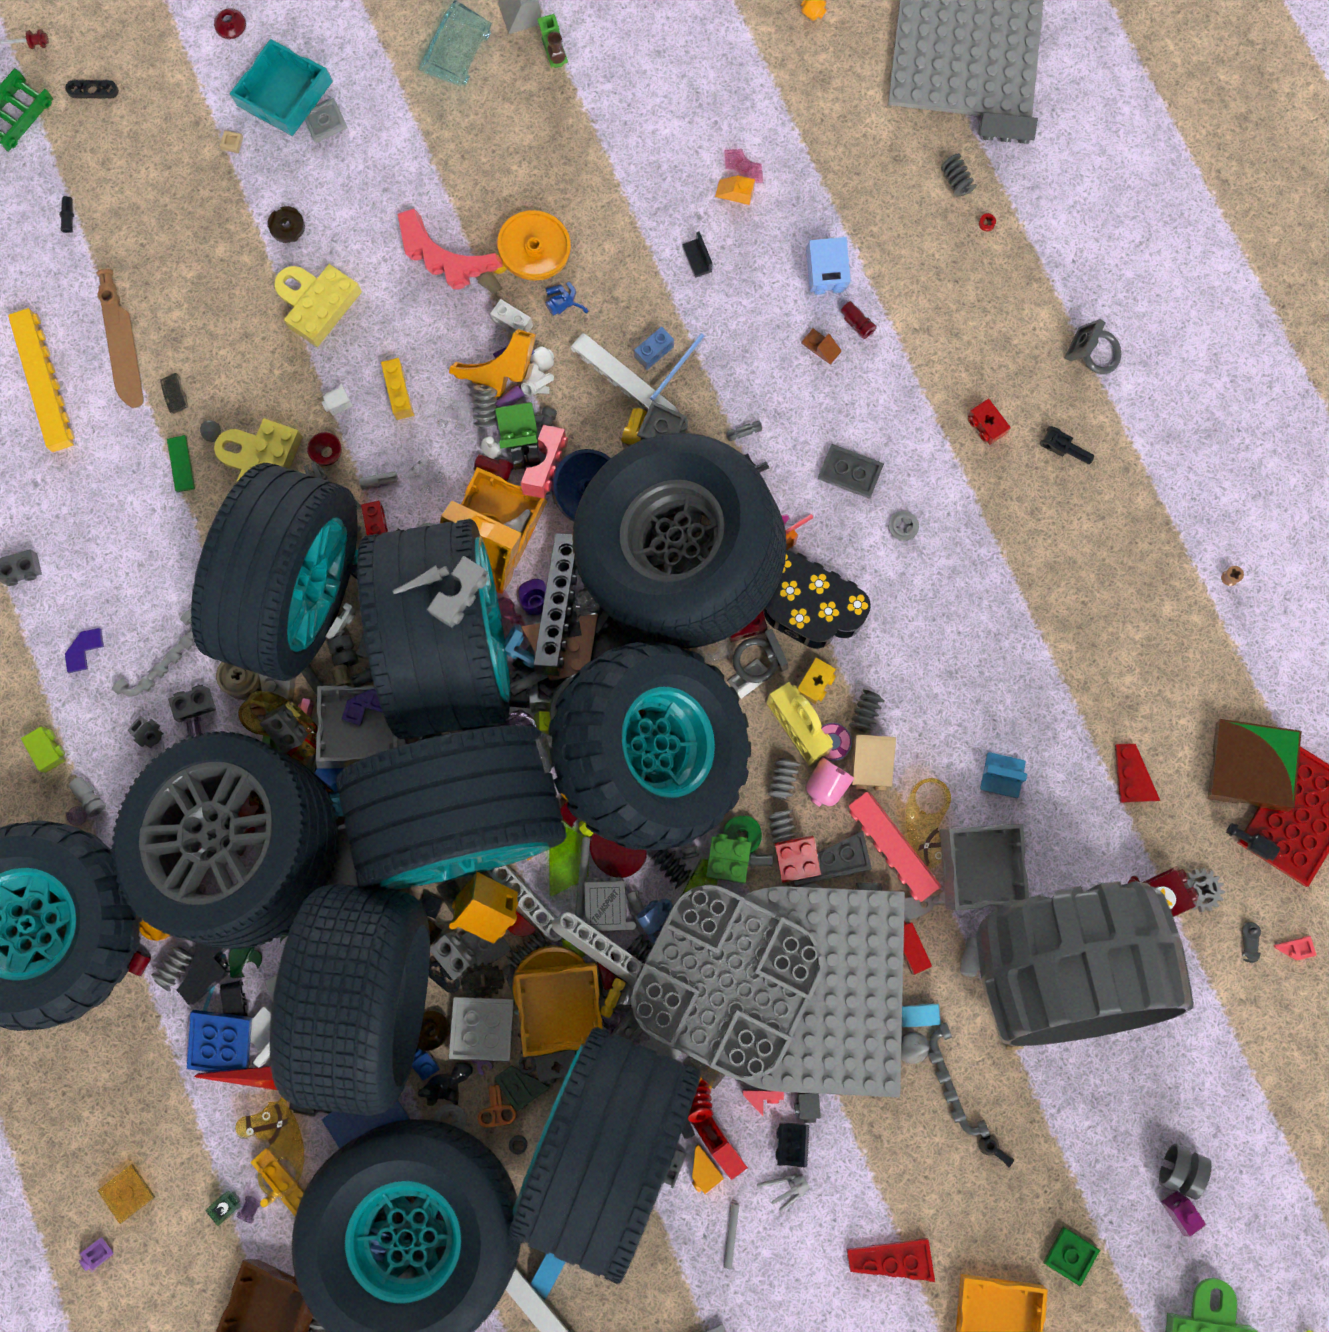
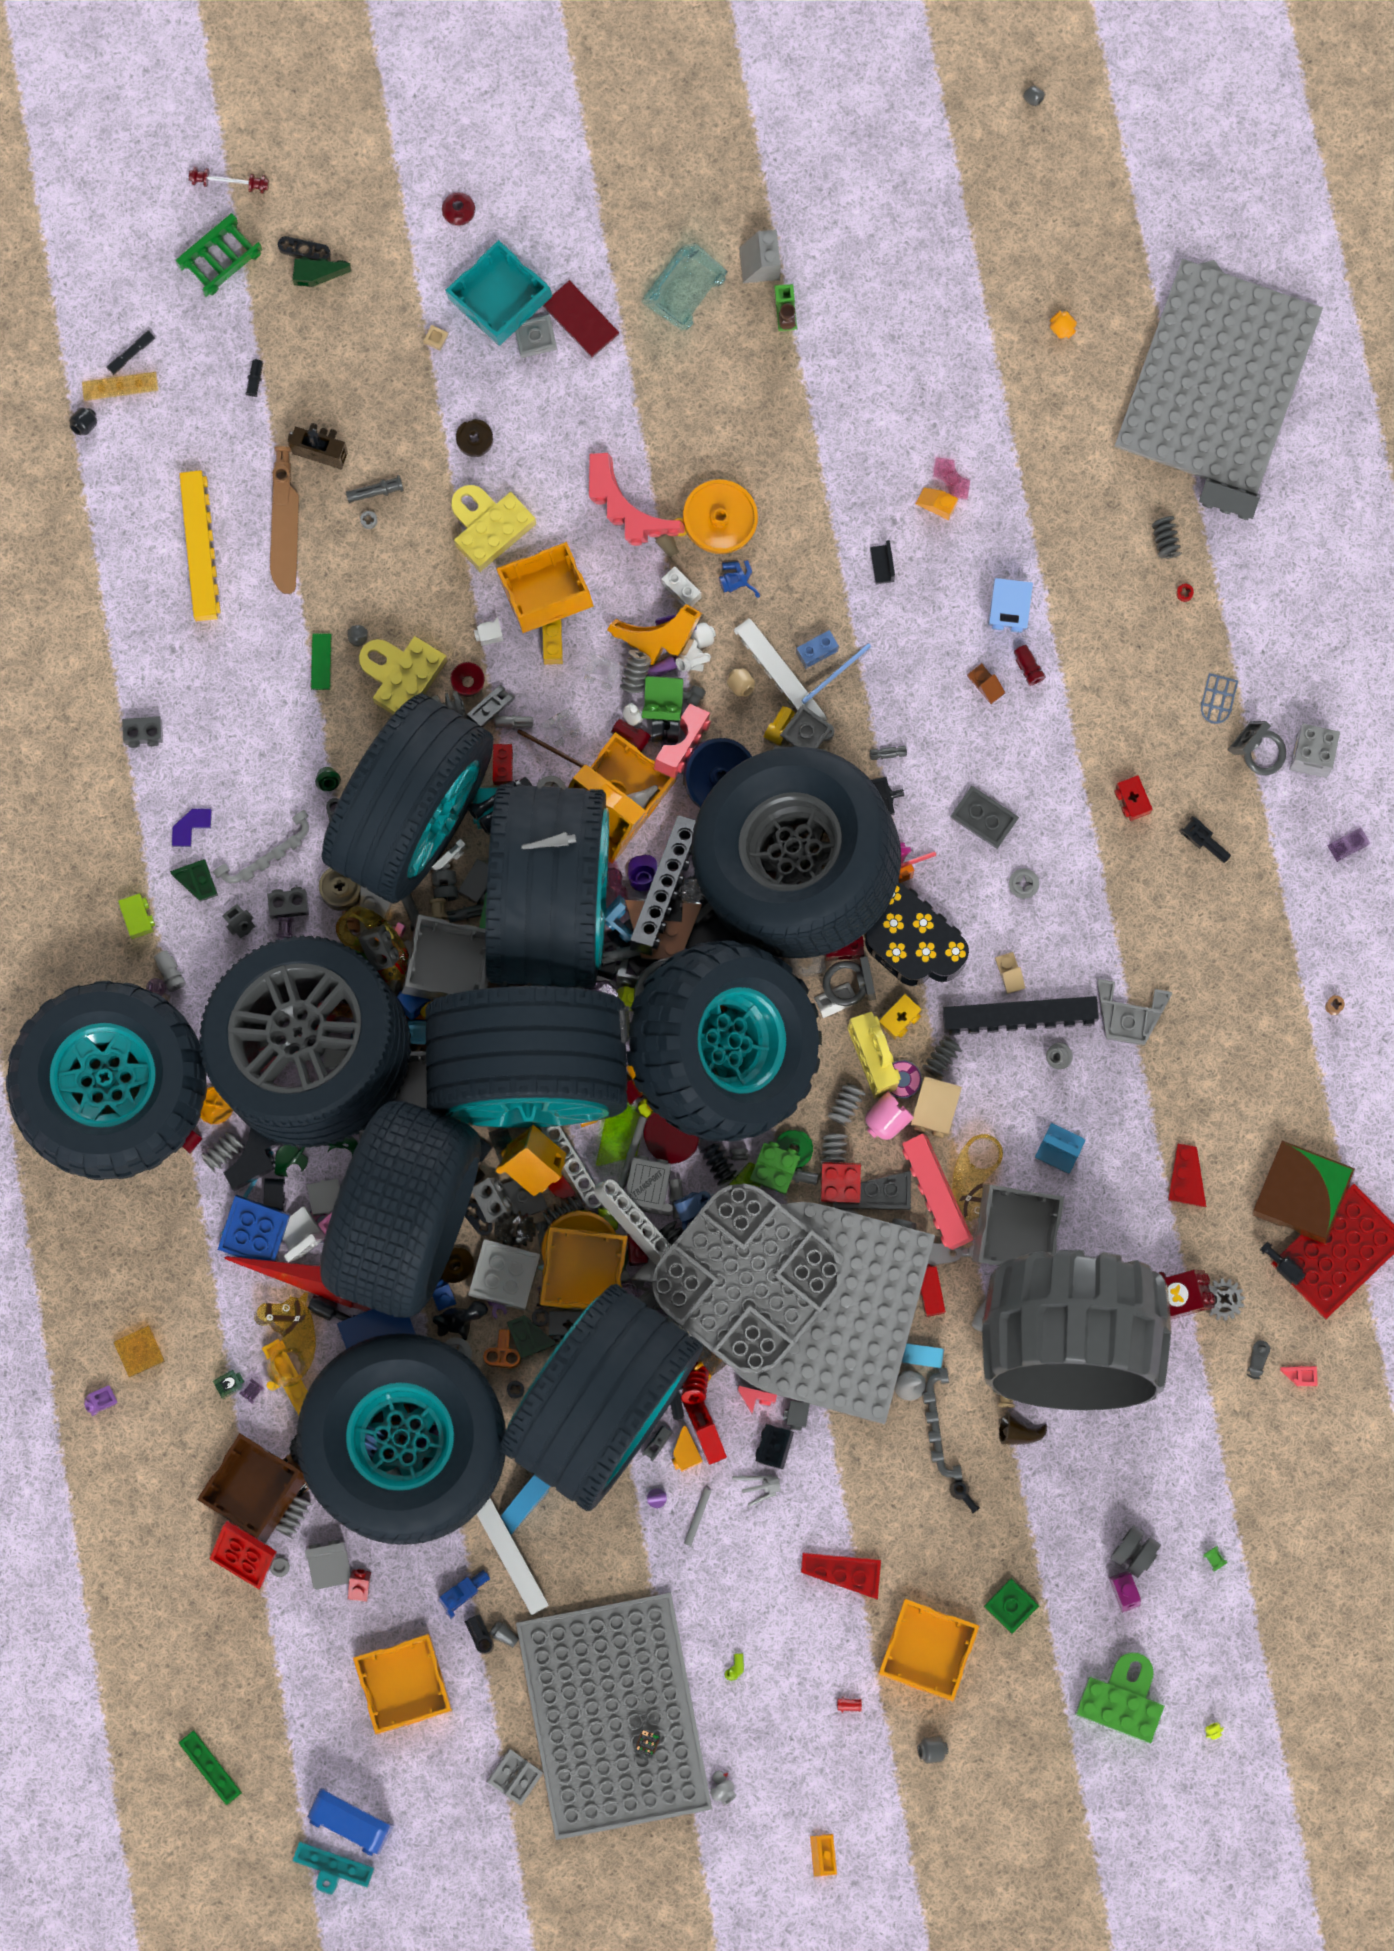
camera: 10 degrees right, 0 degrees up
(98, 700) = (196, 880): none -> dark green wing
(104, 107) = (314, 272): none -> dark green slope
(136, 262) = (318, 446): none -> dark brown piece
(173, 393) = (328, 589): clear smoke slope -> none
(205, 325) = (373, 516): none -> light grey bush
(209, 288) = (384, 487): none -> dark grey pin
(352, 468) = (490, 706): none -> dark grey plate
(356, 706) = (466, 938): dark purple tile -> none
(364, 97) = (581, 319): none -> dark red tile
(380, 345) = (544, 587): none -> light orange tile
(416, 496) = (550, 748): none -> reddish brown axle
(450, 609) = (570, 874): light grey arch -> none
(588, 395) = (741, 682): none -> tan head
(612, 998) = (635, 1271): yellow axle -> none
(685, 1226) = (656, 1498): none -> medium lavender plate
(911, 614) = (1010, 973): none -> tan slope
(932, 652) = (1020, 1014): none -> black brick
(979, 684) = (1059, 1056): none -> light grey piece
(1035, 1072) = (1018, 1432): none -> dark brown hat
(1037, 636) = (1129, 1022): none -> light grey wing
(1038, 321) = (1215, 691): none -> sand blue window
(1151, 337) = (1314, 750): none -> light grey container
(1203, 420) = (1349, 844): none -> clear purple slope
(1263, 1158) = (1215, 1558): none -> bright green bush

